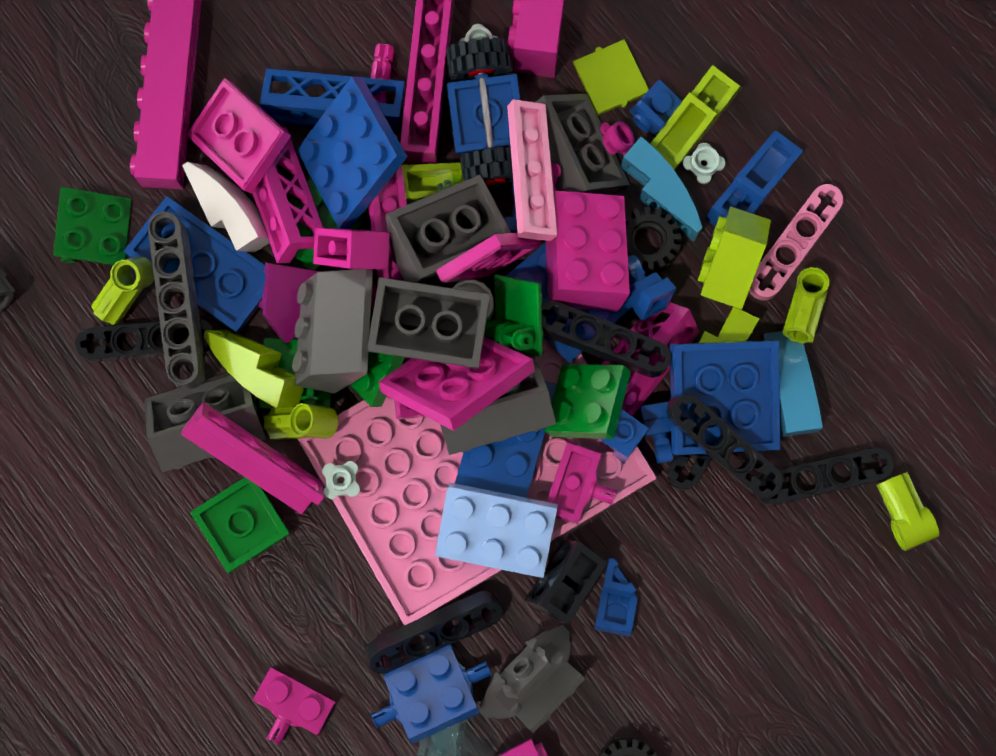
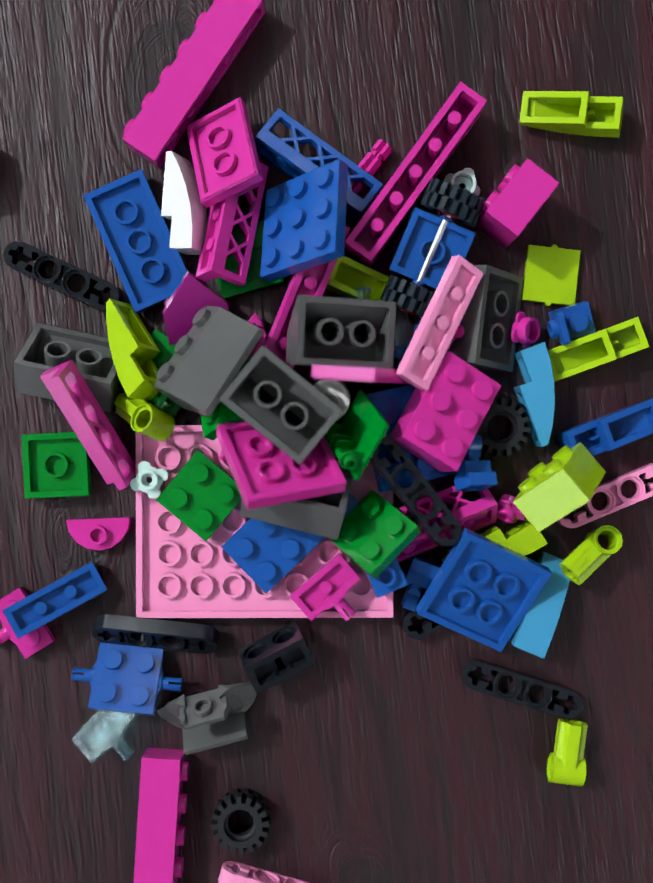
camera: 30 degrees right, 10 degrees up
(91, 227) = (69, 159): green hinge -> none
(121, 289) = (65, 225): lime piece -> none
(166, 287) = (98, 245): dark grey beam -> none
(314, 654) = (54, 600): none -> blue plate
(320, 566) = (99, 532): none -> dark pink plate
(351, 248) = (258, 303): dark pink brick -> none
(401, 466) = (201, 495): none -> green plate
(496, 530) = (245, 589): light blue plate -> none
(616, 603) = (306, 690): blue slope -> none
(705, 311) = (508, 511): none -> dark pink plate
(714, 162) = (590, 389): light aqua plate -> none
(722, 449) = (459, 629): black beam -> none

